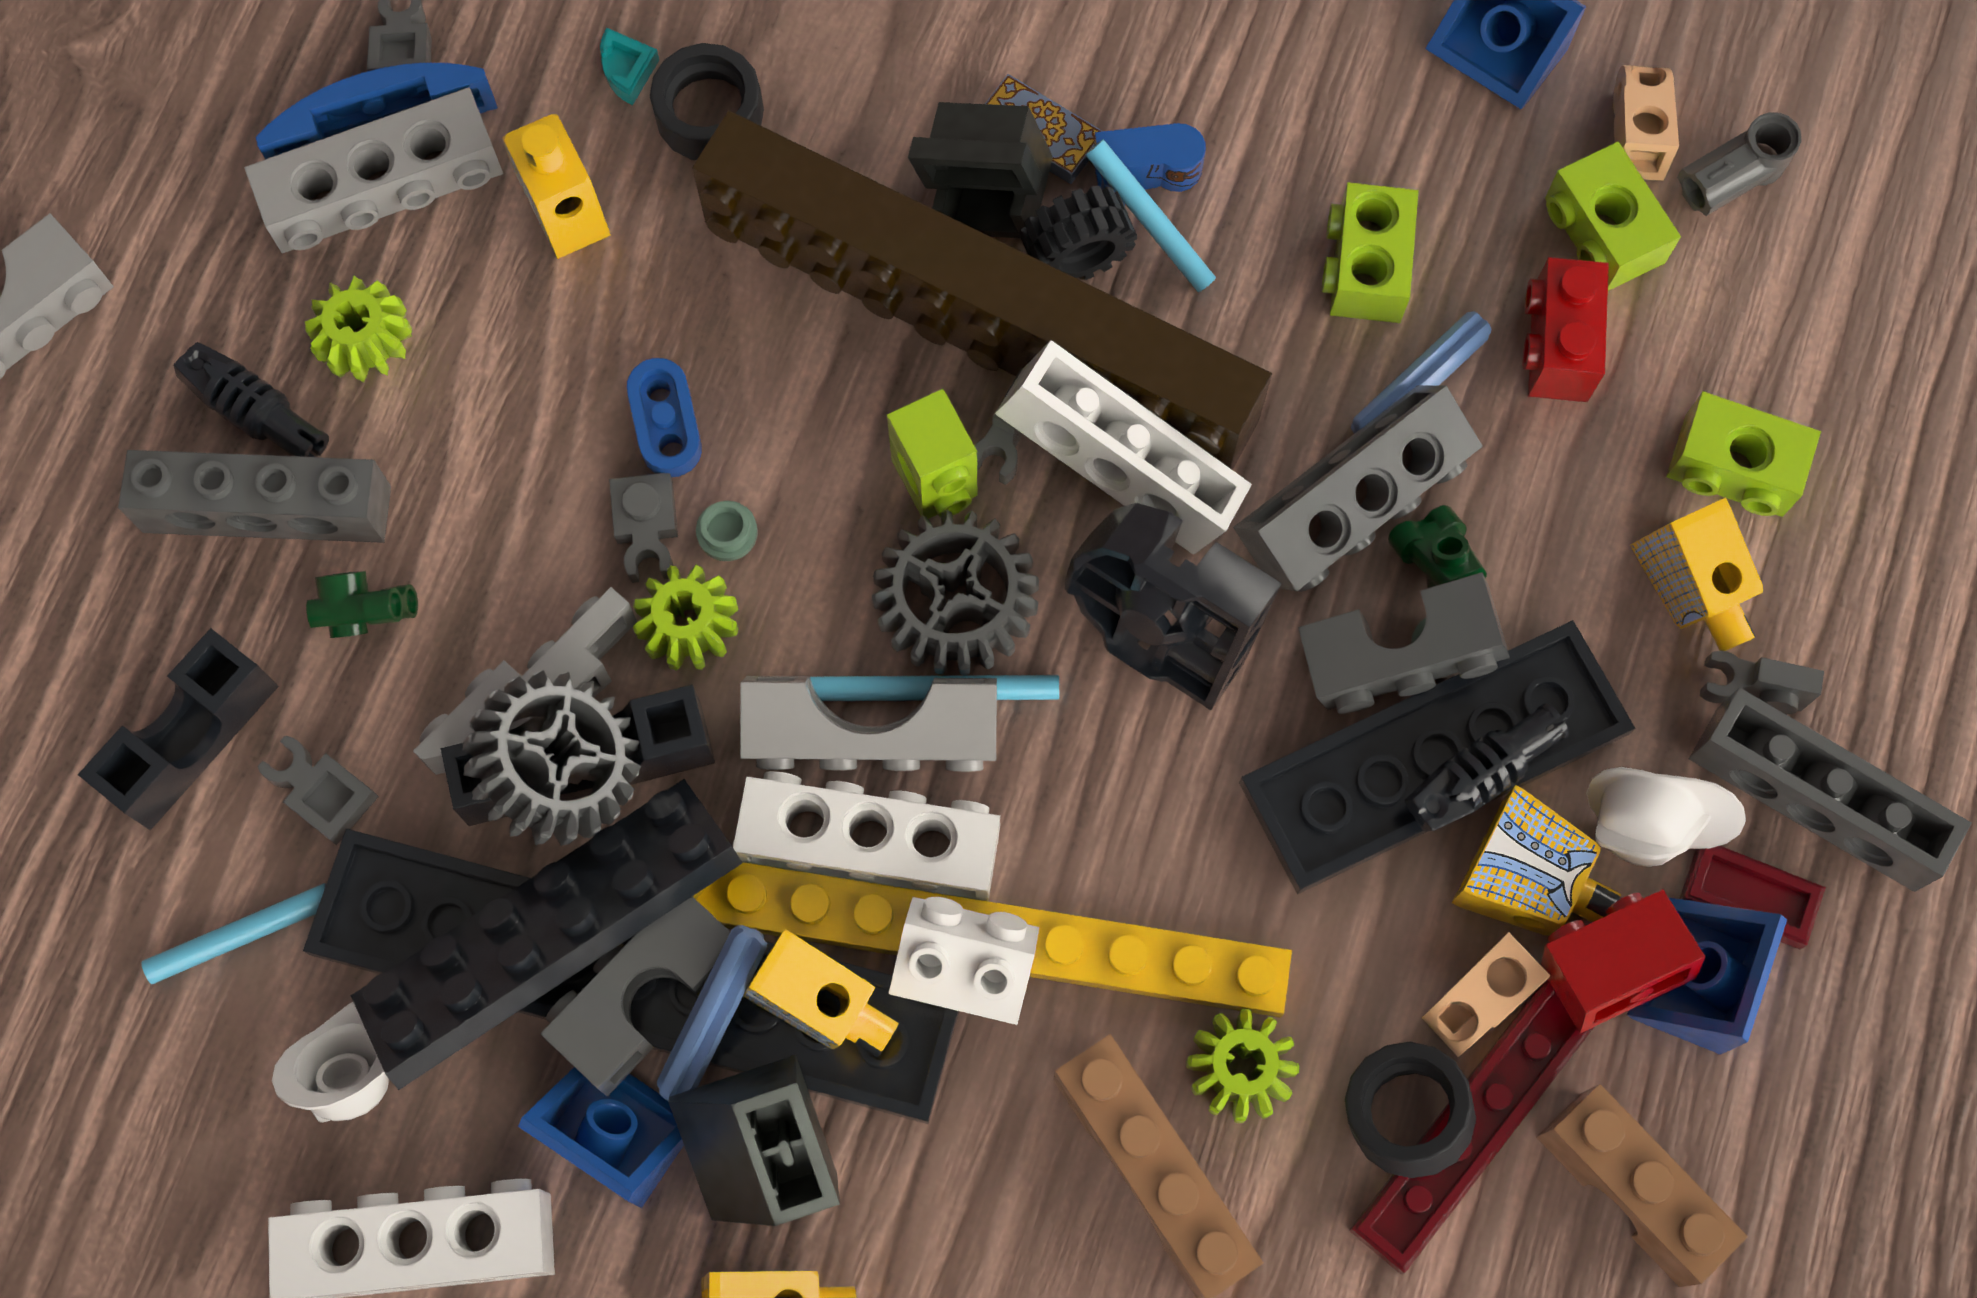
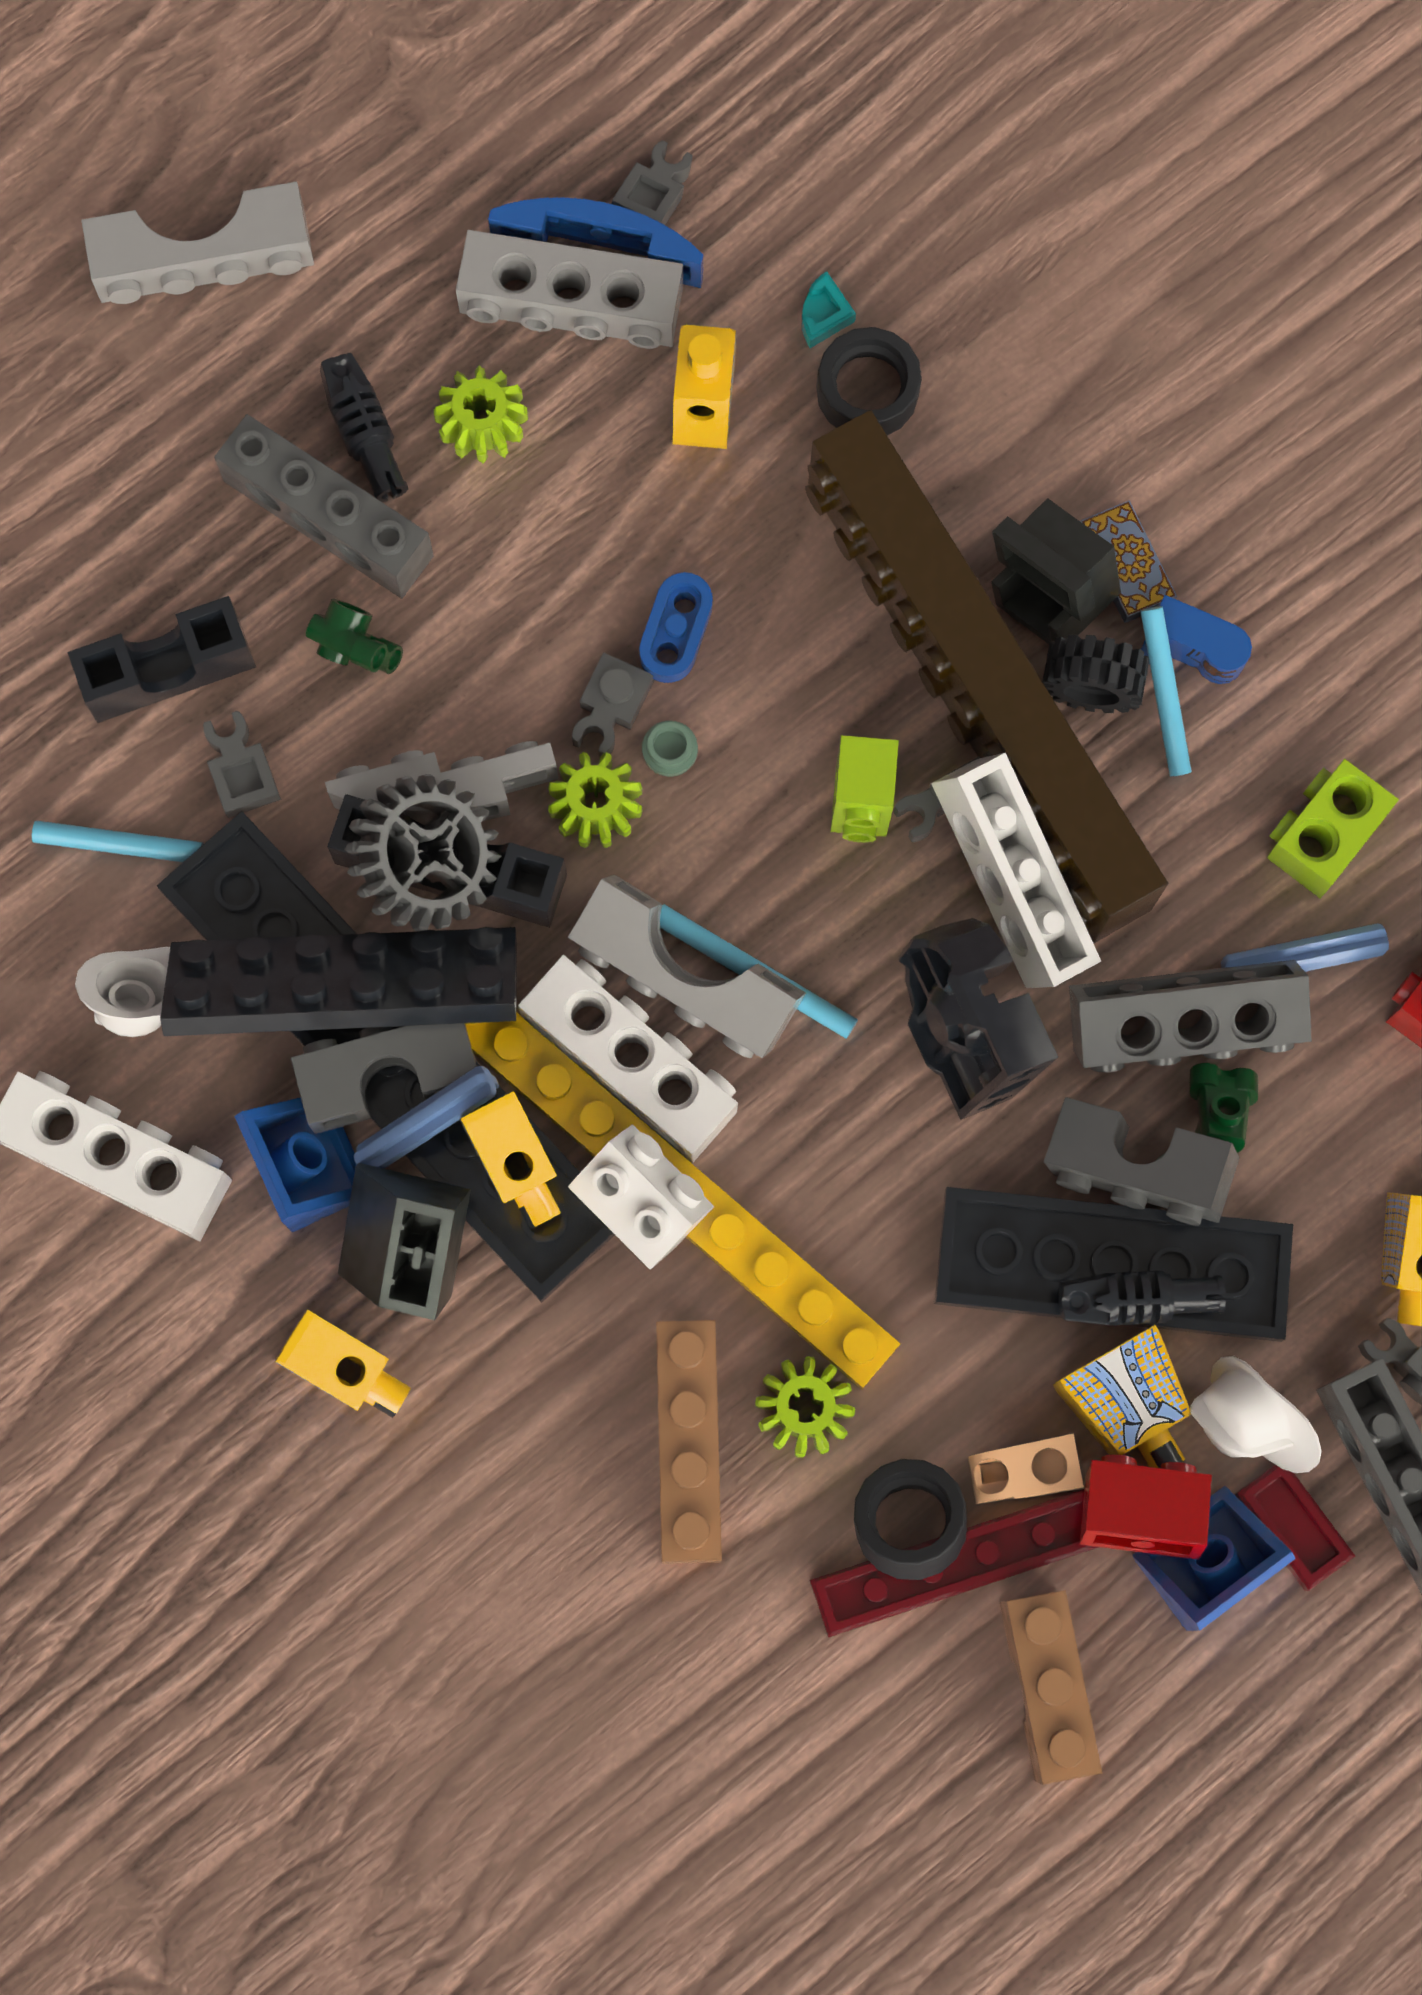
camera: 30 degrees right, 5 degrees up
(915, 565) = (858, 881): dark grey gear -> none

